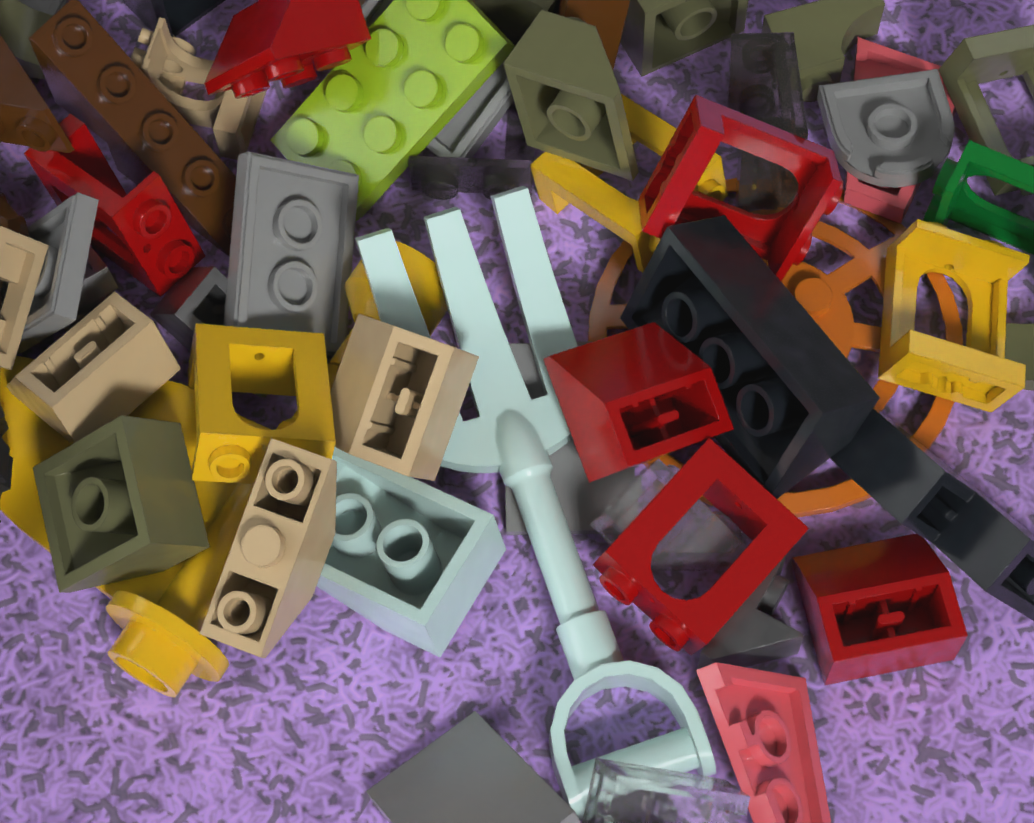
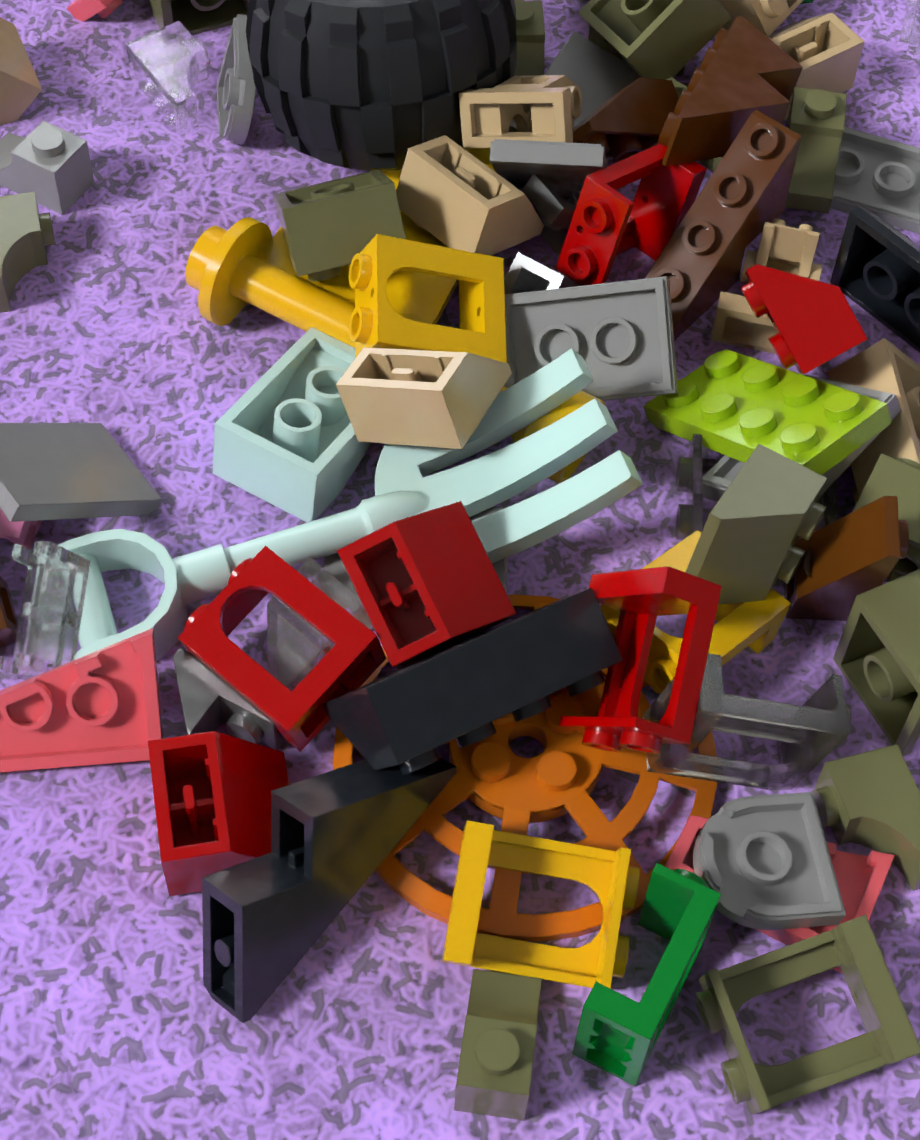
camera: 85 degrees right, 10 degrees down
(275, 550) = (278, 311): tan slope -> none

